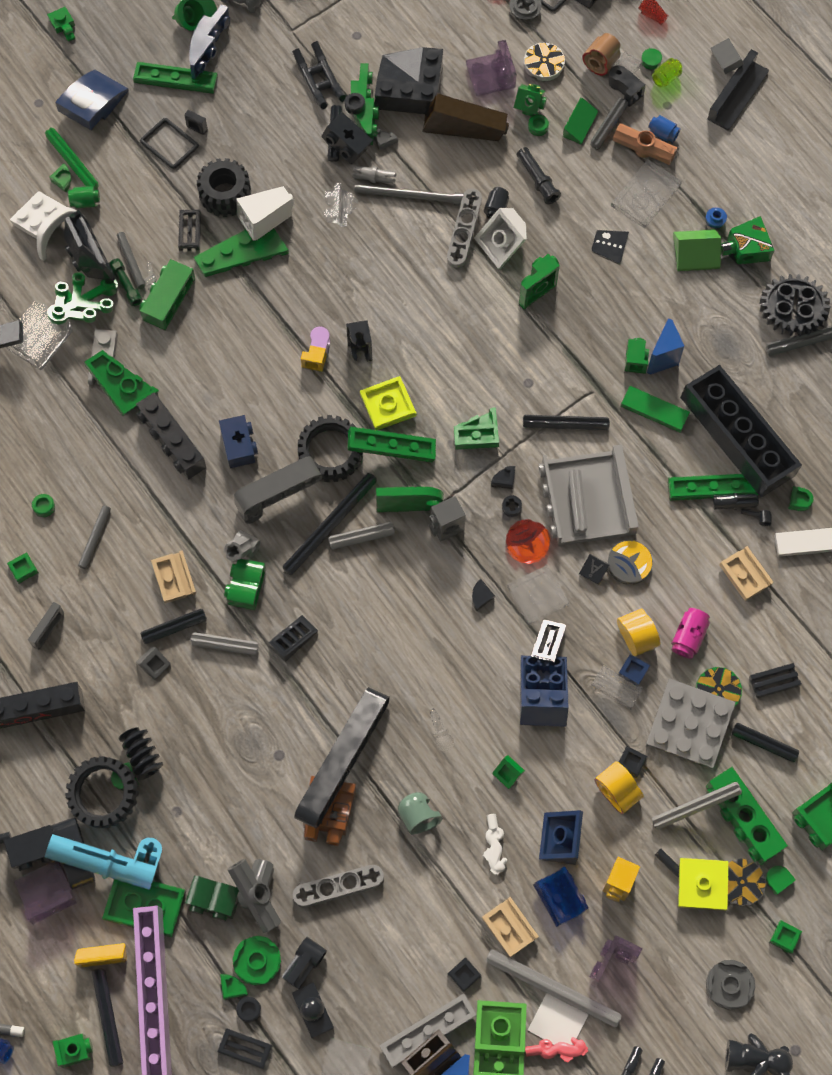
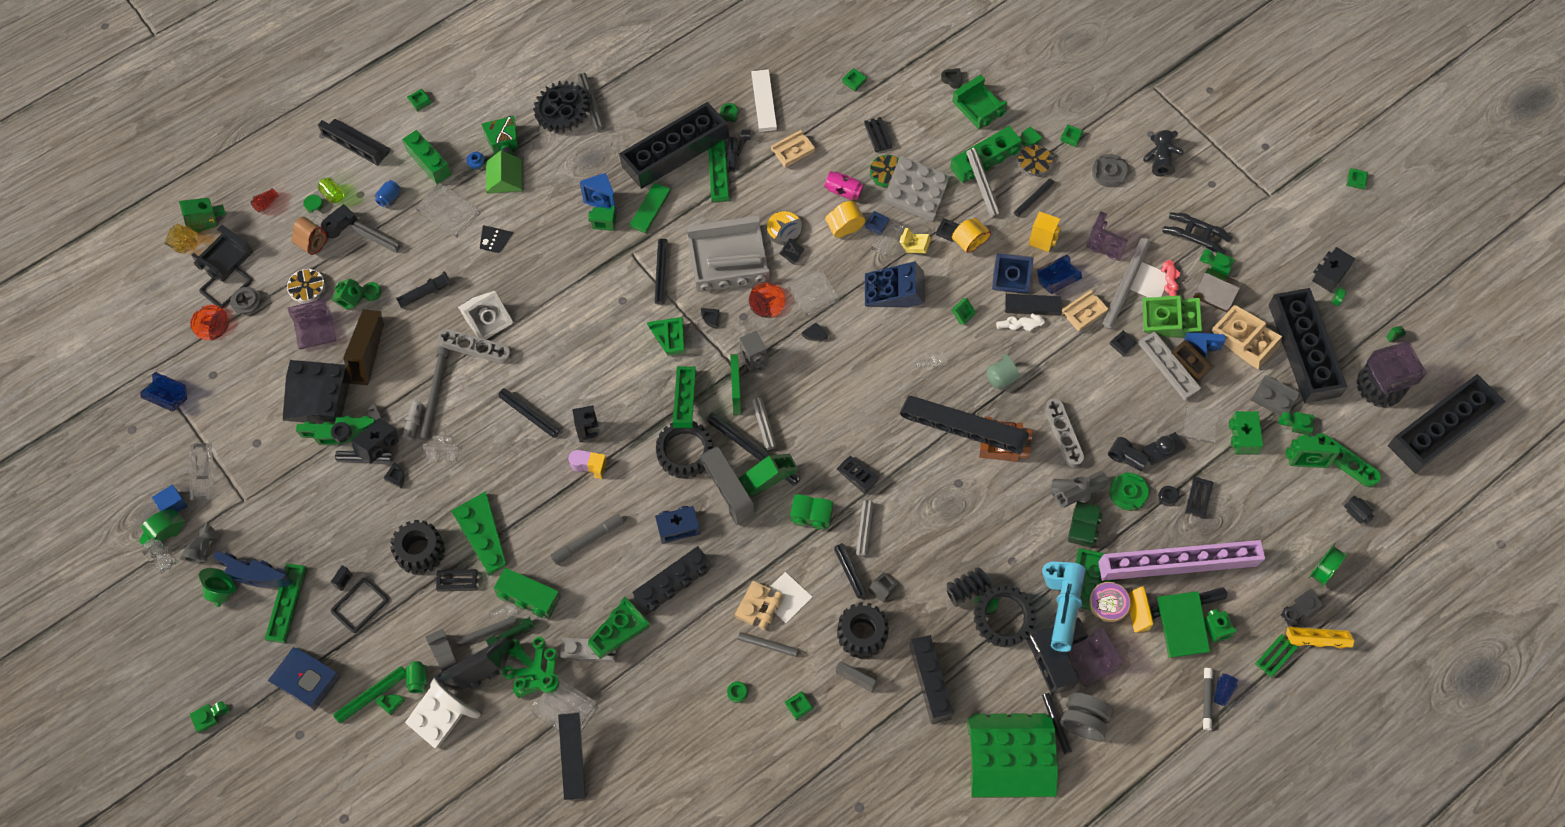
camera: 90 degrees left, 5 degrees down
(77, 1005) = (1183, 624): none -> green tile
(88, 618) = (862, 614): none -> black tyre
(110, 219) = (441, 649): none -> dark grey leg
(110, 917) = (1109, 602): none -> tile
(139, 556) = (793, 596): none -> white sticker
(143, 522) = (753, 602): none -> tan plate
(173, 577) = (806, 572): tan plate -> none
(232, 987) = (1152, 509): green tile -> none
(240, 370) = (566, 551): none -> dark grey piece
(242, 546) = (779, 513): light grey piece -> none
(264, 211) = (447, 509): white slope -> none
(290, 534) = (768, 473): none -> green slope
(312, 164) = (395, 475): none -> black tile
(321, 66) = (289, 469): black piece -> none
(382, 288) = (529, 413): none -> black axle
(388, 403) = (641, 405): neon yellow plate -> none
(496, 199) = (451, 320): black brick -> none
(517, 502) = (739, 306): black bush -> none
(521, 862) = (1033, 304): none -> black tile
(542, 280) = (532, 284): green plate -> none
(544, 656) = (871, 278): tile -> none
(580, 121) = (371, 258): green slope -> none
(609, 716) = (915, 242): none -> light yellow bracket
(656, 148) = (395, 215): nougat piece -> none
(703, 884) = (1040, 182): neon yellow plate -> none
(714, 164) = (426, 157): none -> green brick
(727, 56) = (320, 144): dark grey tile -> none
(765, 742) = (927, 141): black axle -> none
(800, 154) = (419, 99): none -> green tile

